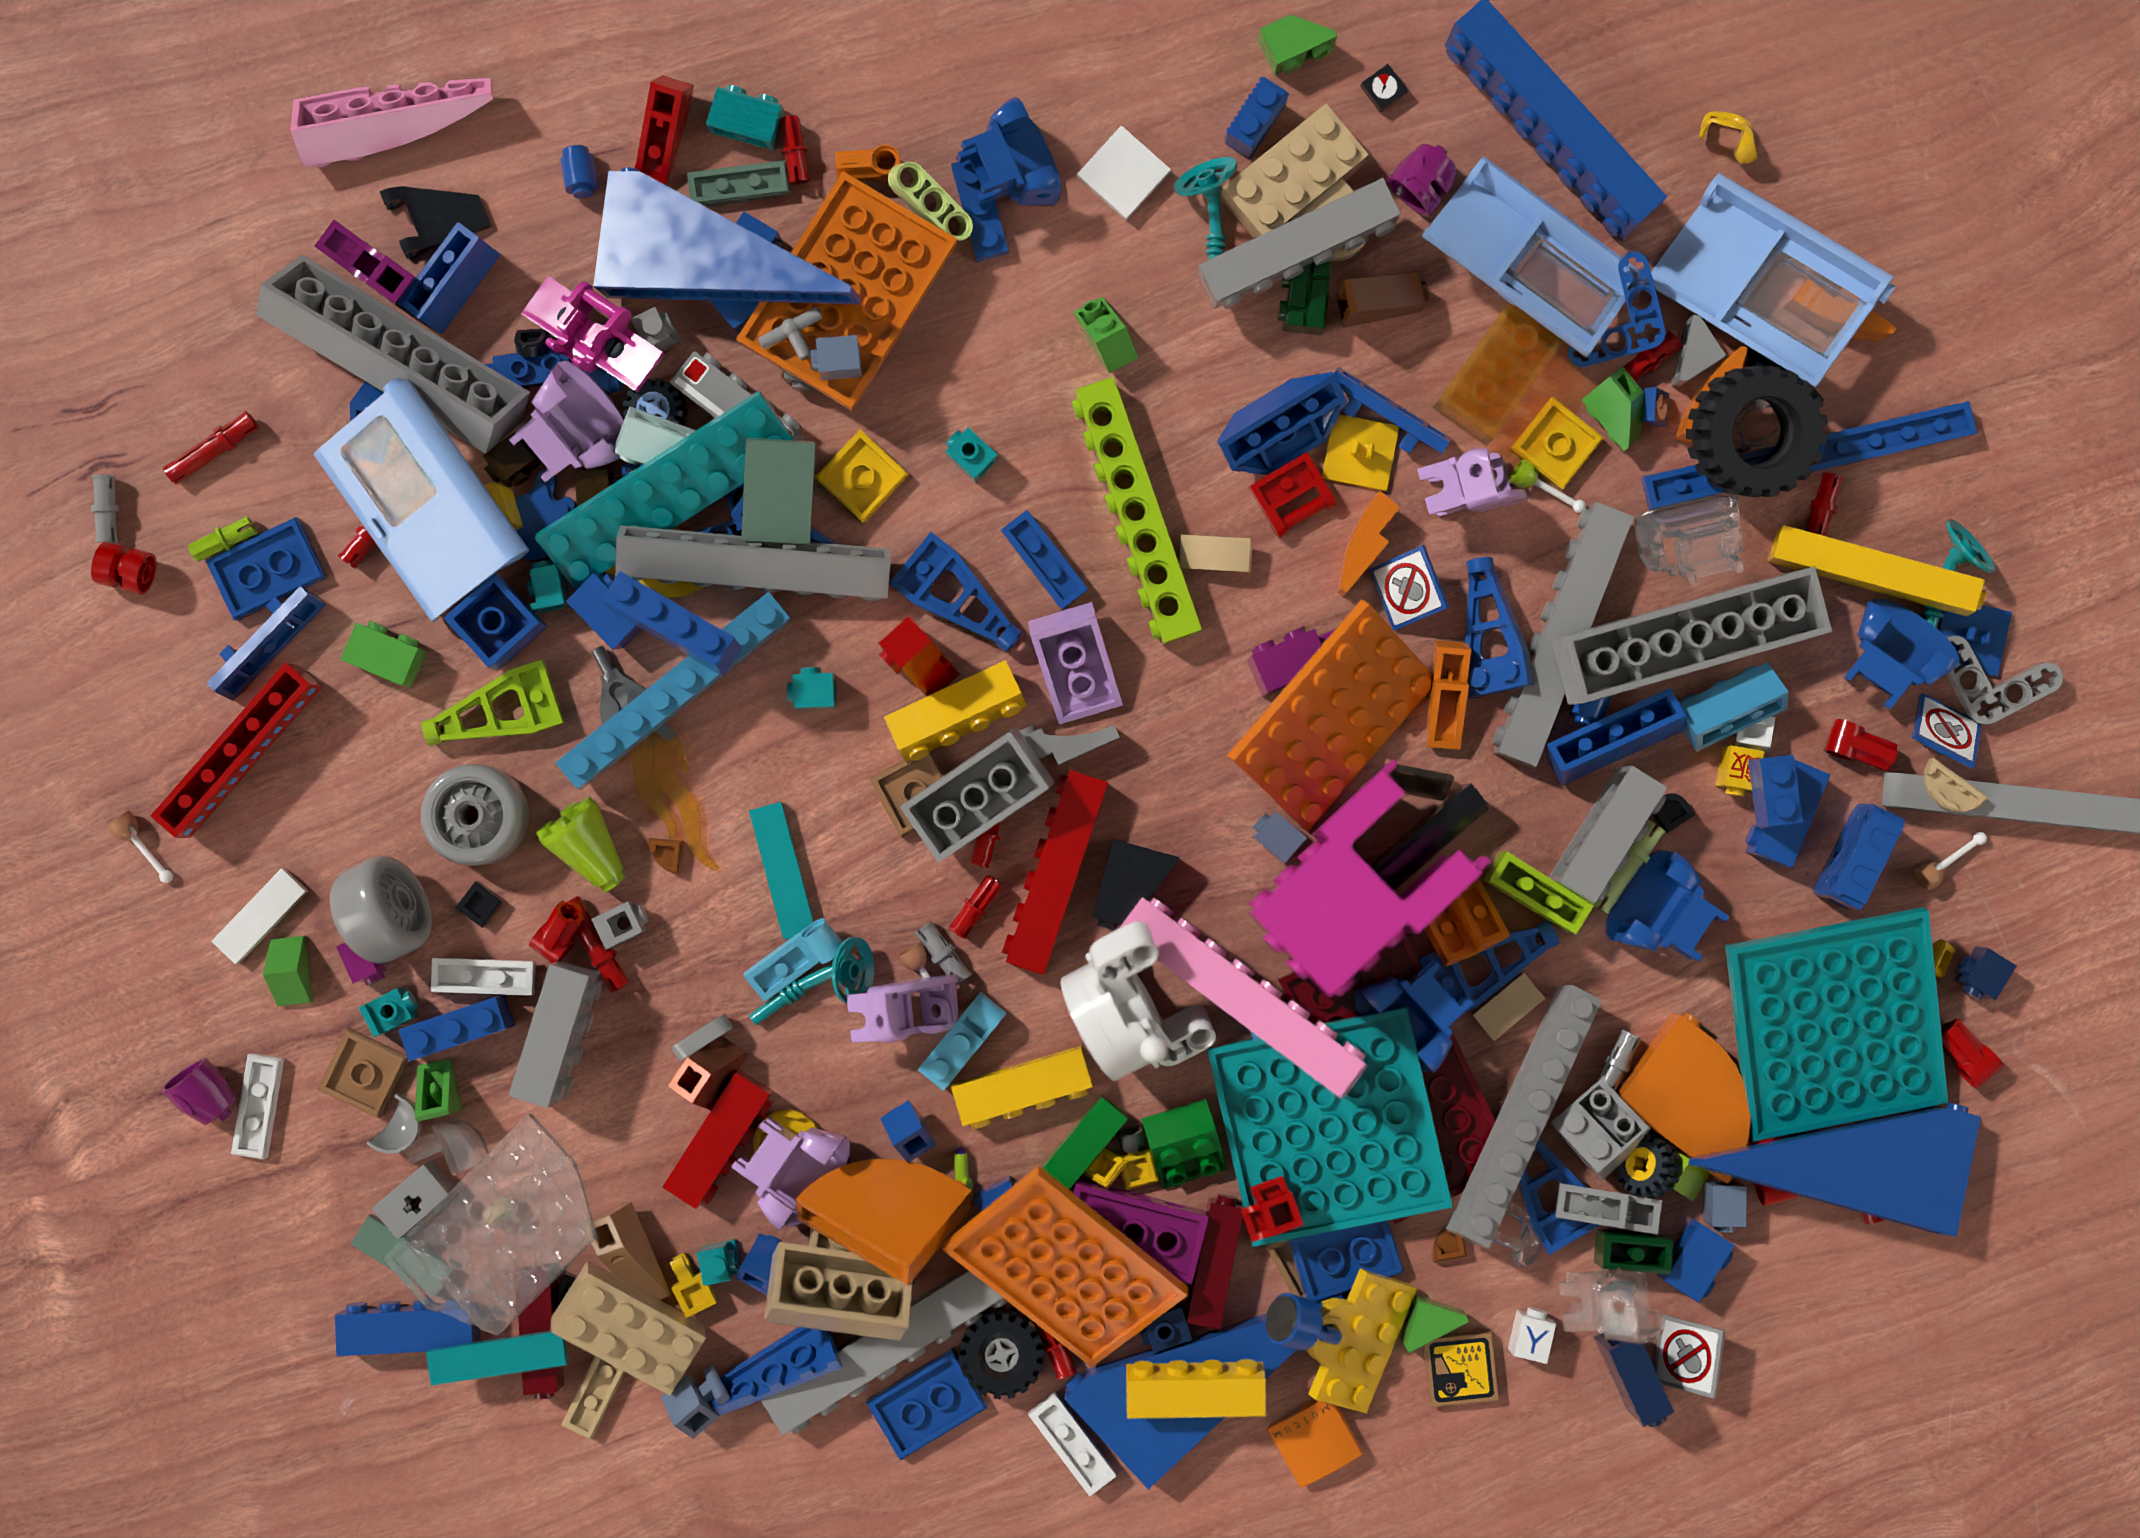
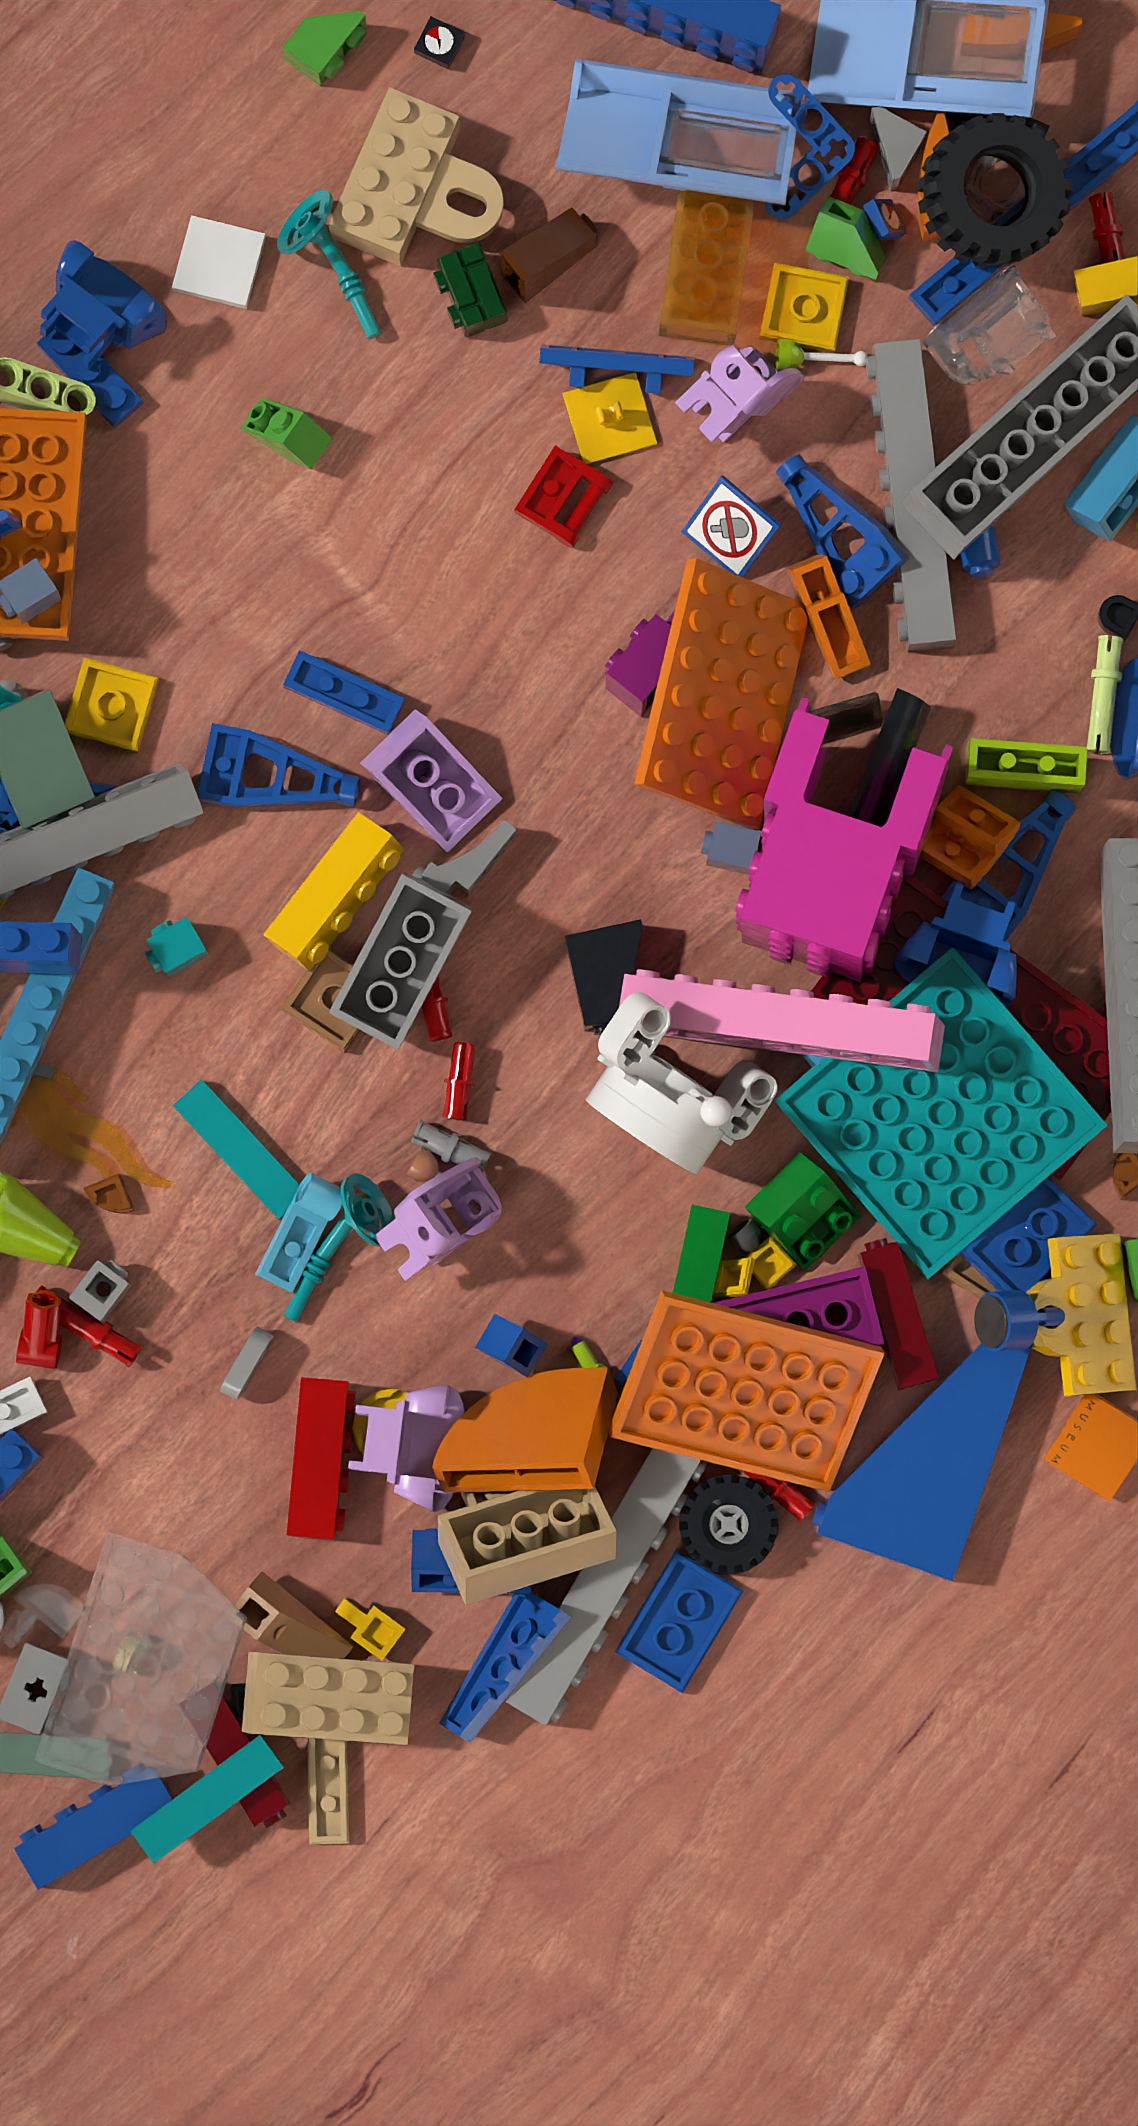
camera: 30 degrees left, 5 degrees down
(556, 1034) = (94, 1434): light grey brick -> none
(691, 1403) = (435, 1745): sand blue brick -> none
(708, 1072) = (272, 1394): copper slope -> none
(718, 1262) = (386, 1584): teal brick -> none
(917, 656) = (263, 854): red wedge -> none
(962, 1041) = (518, 1226): medium azure plate -> none
(970, 454) = (211, 624): teal brick -> none
(1021, 1086) = (604, 1239): yellow brick -> none
(1056, 871) = (523, 1001): red brick -> none
(1072, 1444) = (851, 1580): white plate -> none
(1106, 397) = (321, 496): lime brick -> none
(1167, 1330) = (884, 1409): dark blue brick -> none
(1195, 1389) = (944, 1446): yellow brick -> none
(1216, 553) = (516, 595): tan slope -> none
(1256, 117) = (324, 138): blue brick -> none
(1273, 1211) = (927, 1226): red brick -> none
(1282, 424) = (515, 429): blue wedge -> none
(1298, 244) = (435, 241): light grey brick -> none
(1365, 541) = (662, 503): orange slope -> none
(1423, 178) = (527, 111): magenta helmet -> none
(1508, 1006) = (1059, 899): tan tile -> none
(1608, 833) = (1064, 666): light grey brick -> none
(1616, 736) = (1020, 568): blue brick -> none

